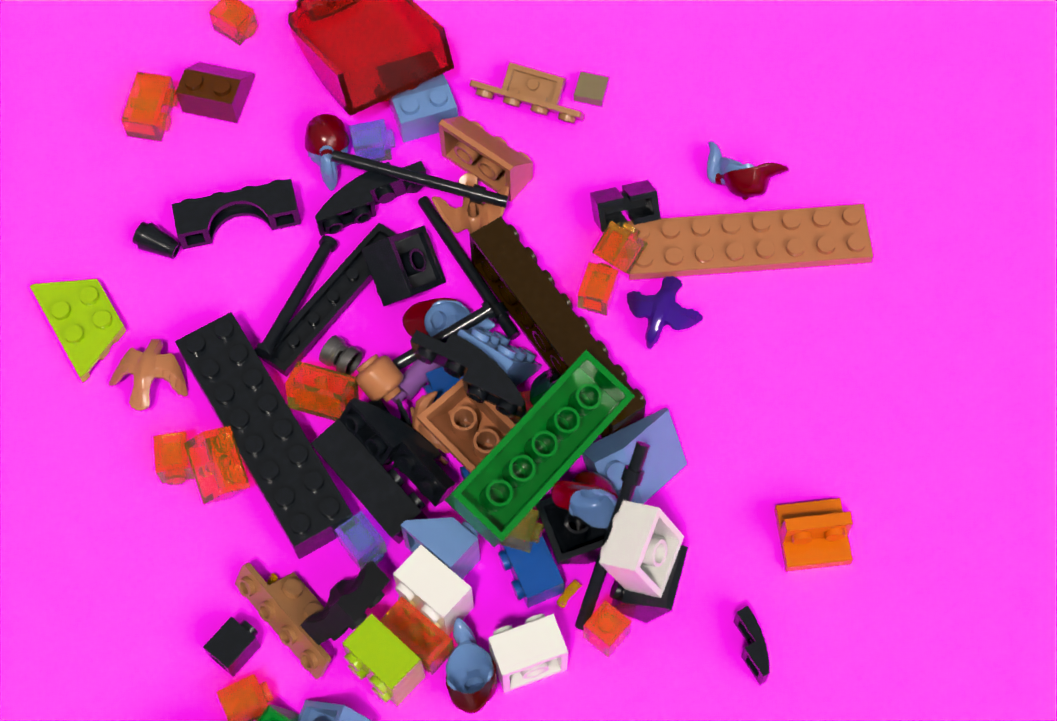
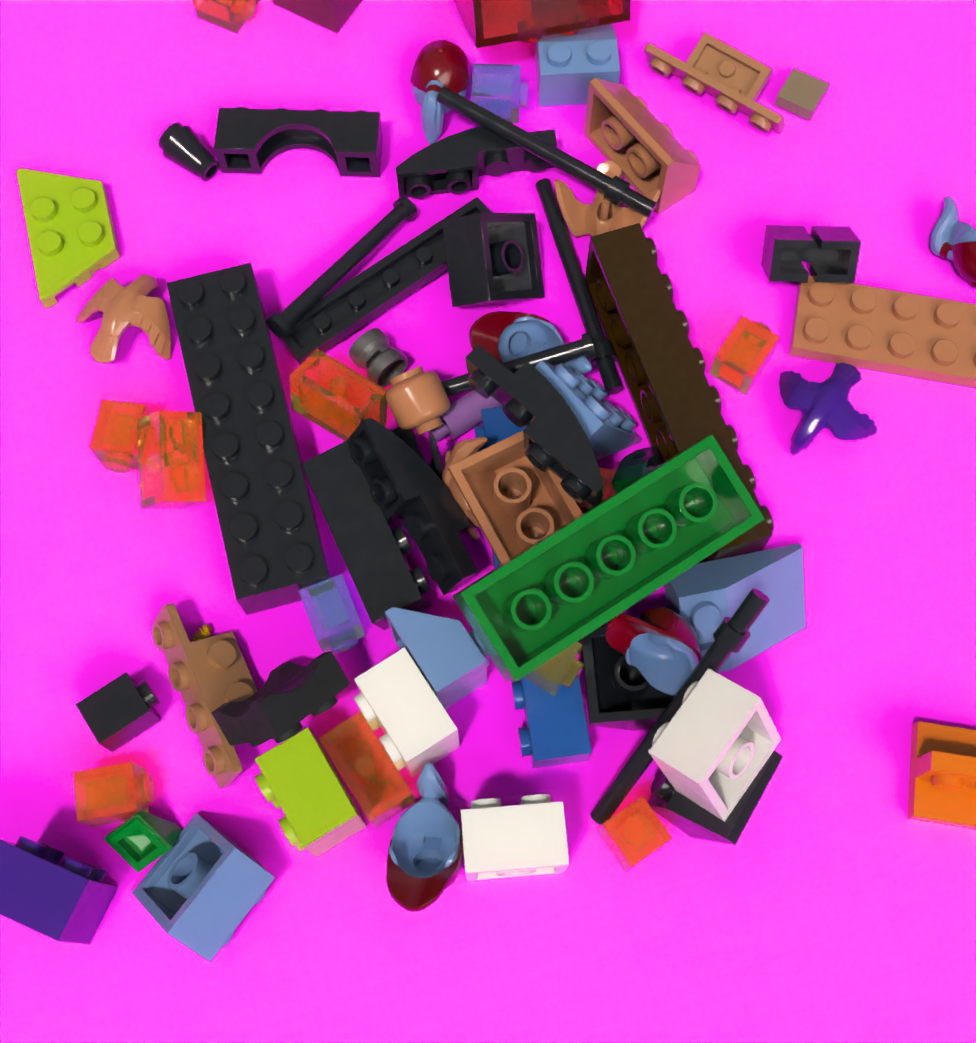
camera: 15 degrees right, 5 degrees up
(568, 593) = (587, 771): yellow leg -> none
(620, 246) = (791, 305): brick -> none
(756, 653) = (839, 935): black slope -> none

